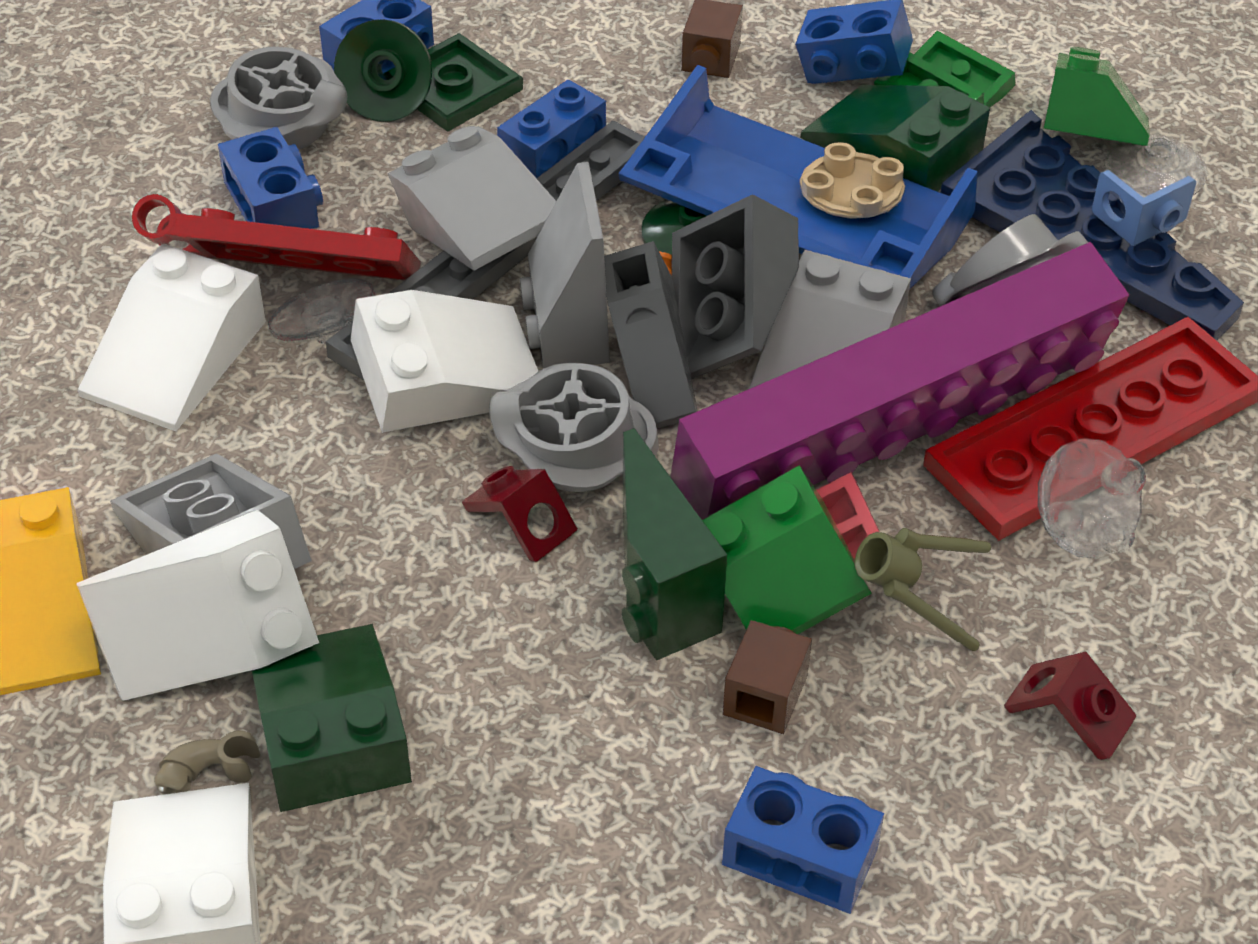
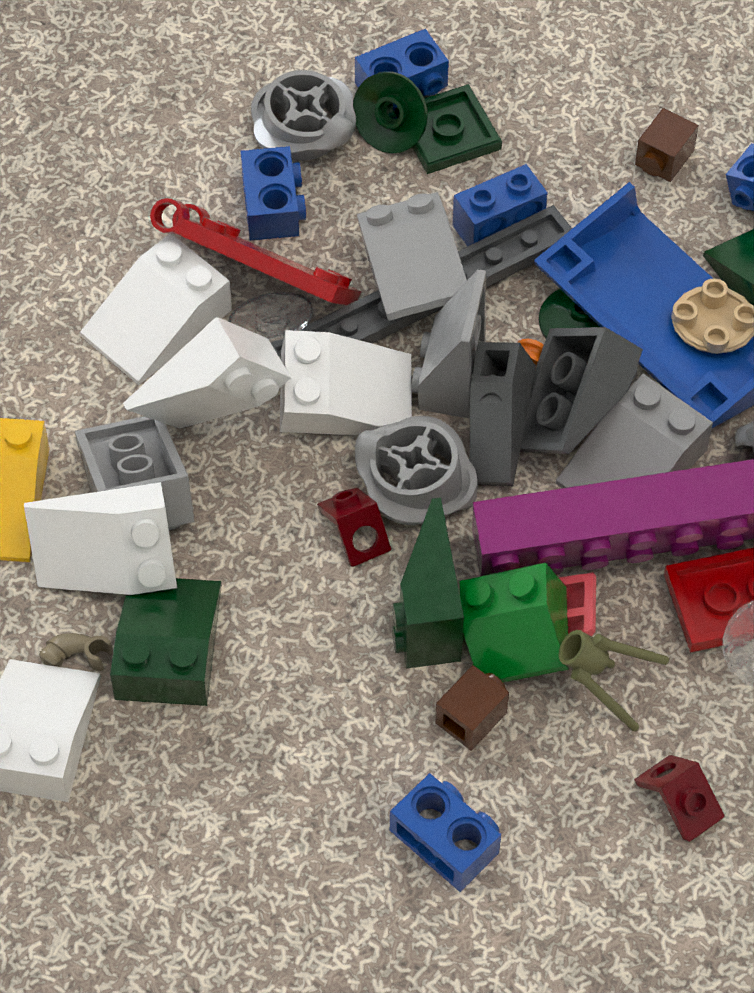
camera: 20 degrees right, 10 degrees up
(277, 378) = (212, 377): none -> white slope

